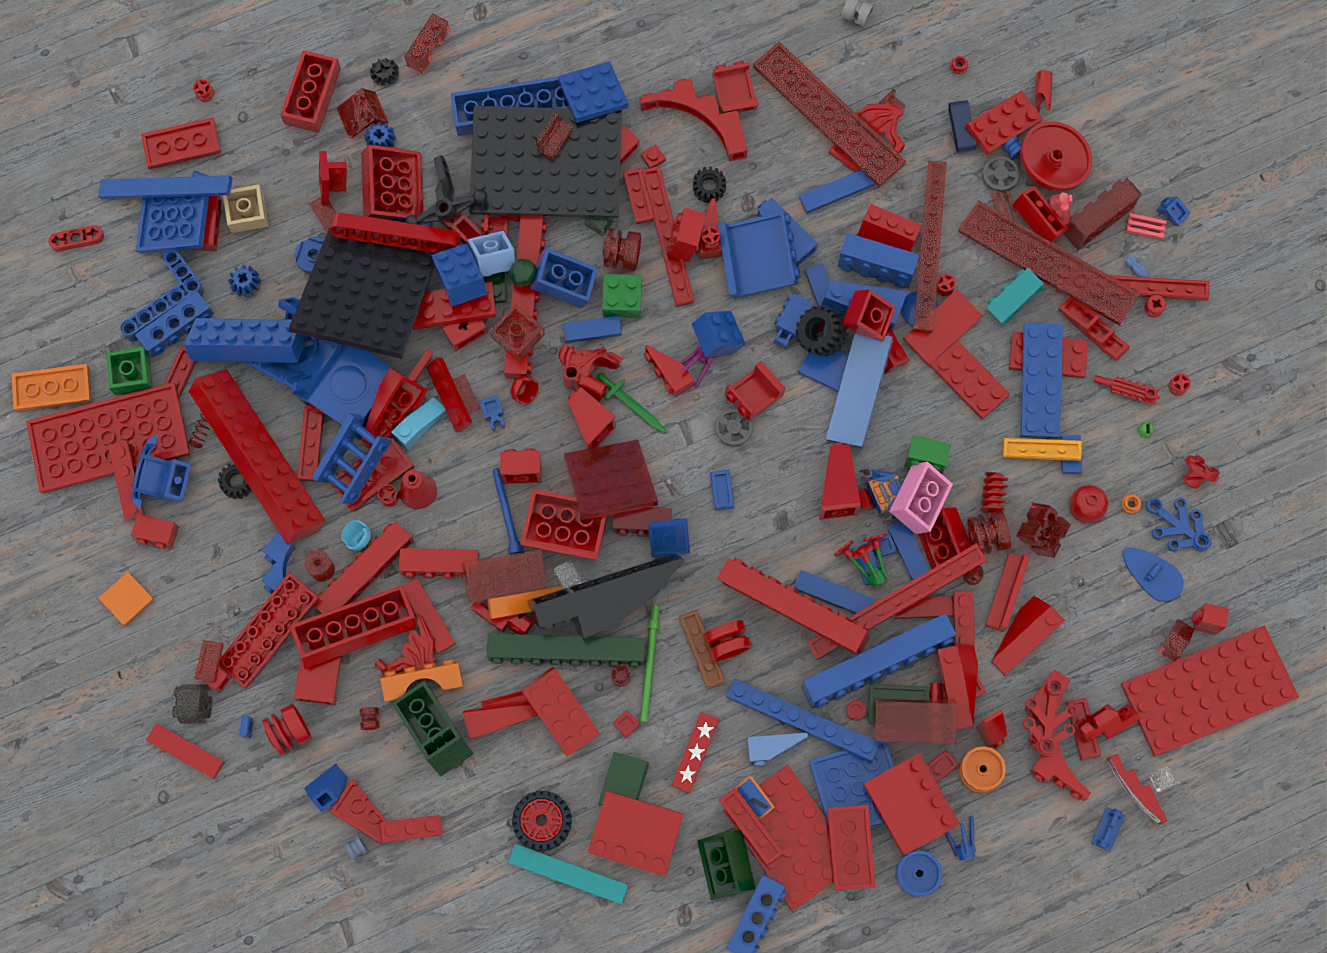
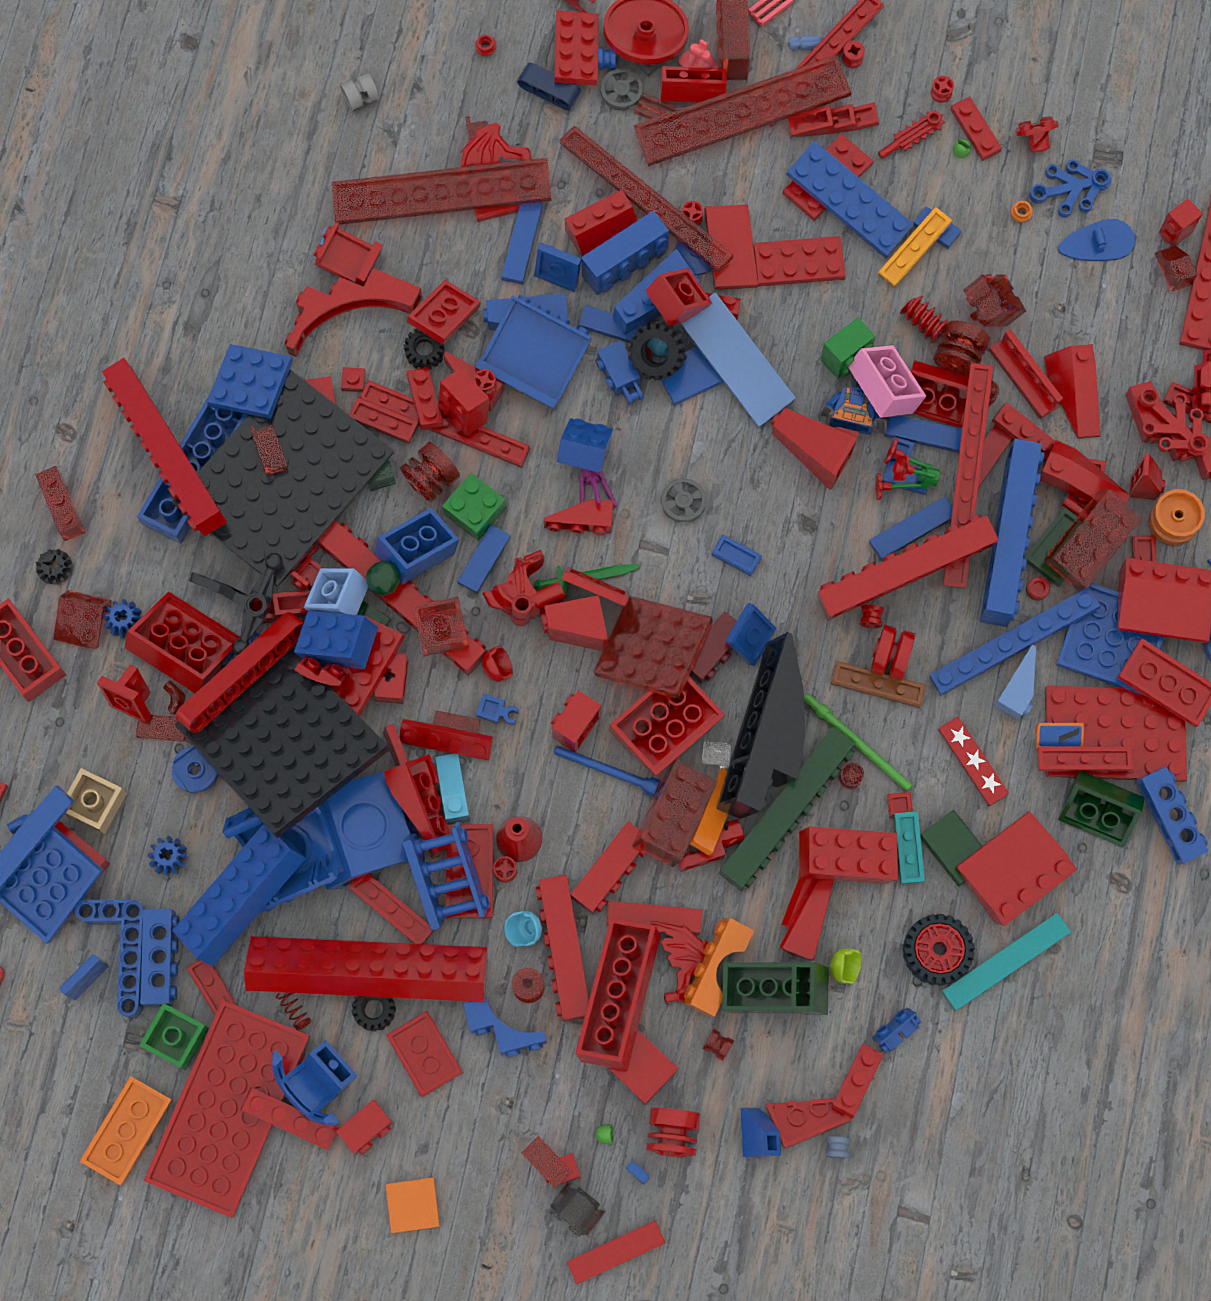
camera: 55 degrees left, 0 degrees up
(127, 288) = (83, 977): none -> blue tile
(230, 534) = (424, 1054): none -> red tile
(258, 688) = (605, 1134): none -> bright green hinge
(267, 630) = (556, 1081): red plate -> none
(355, 207) = (177, 697): none -> clear red arm
(430, 287) = (330, 674): none -> red slope
(457, 828) = (904, 1021): none -> blue hinge
(484, 765) = (846, 965): none -> lime hair
(506, 74) = (164, 448): none -> red brick
(599, 750) = (909, 848): none -> teal plate
(623, 411) = (595, 586): none -> red tile
(667, 215) = (424, 398): none -> red plate
(742, 177) = (443, 312): none -> red plate
(746, 610) = (871, 616): none -> red wheel
(755, 391) = (665, 454): red panel -> none
(832, 224) = (557, 267): none -> blue plate
(1015, 295) = (753, 161): teal wedge -> none
(1088, 504) = (995, 247): red cylinder -> none
(1169, 428) = (976, 128): none -> red plate

